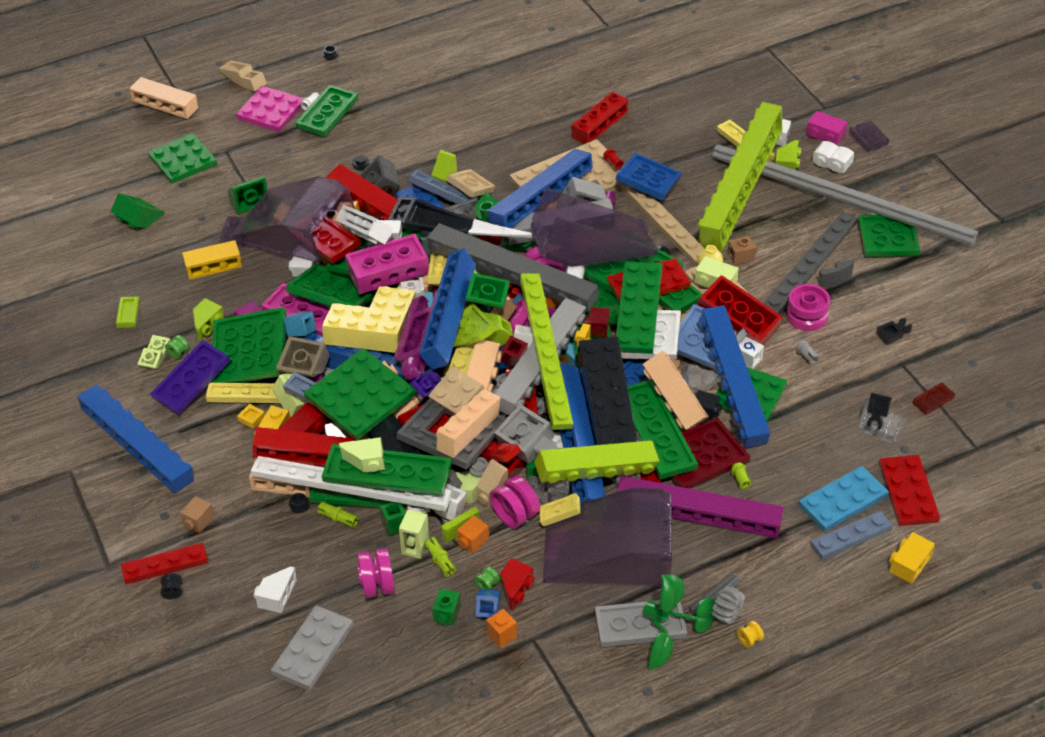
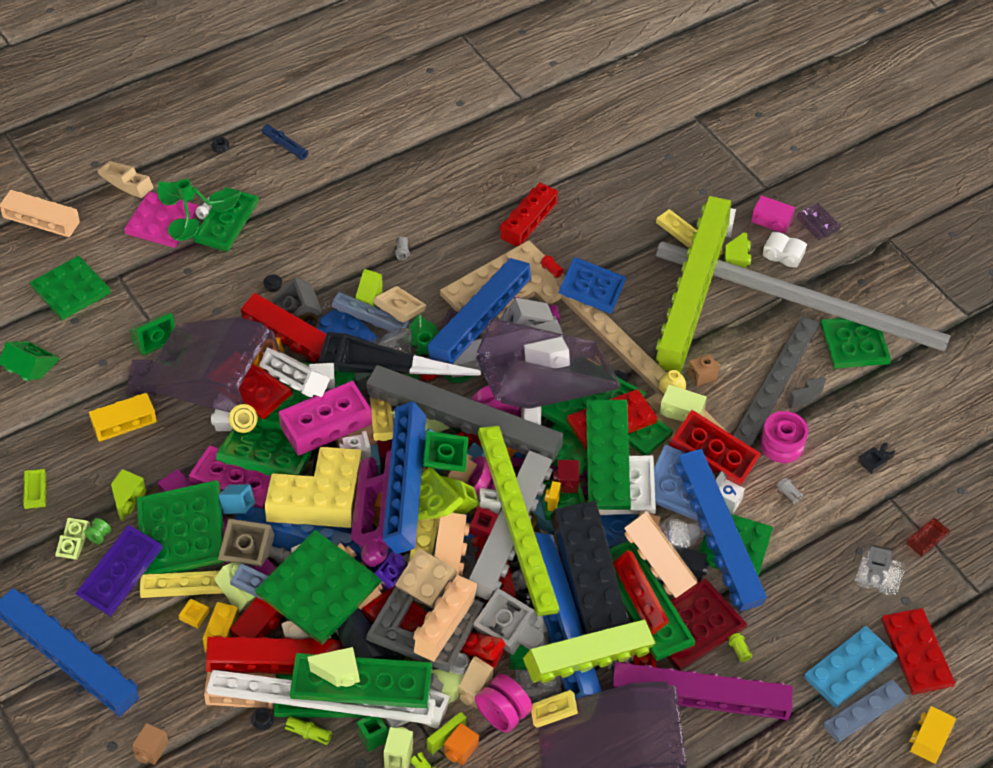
camera: 10 degrees left, 5 degrees up
(290, 83) = (171, 192): none -> green plant
(314, 261) = (243, 418): none -> light yellow brick
(384, 49) = (279, 137): none -> dark blue pin
(480, 142) = (402, 251): none -> light grey pin
(601, 221) = (548, 353): none -> white slope
(652, 419) = (640, 592): none -> red plate

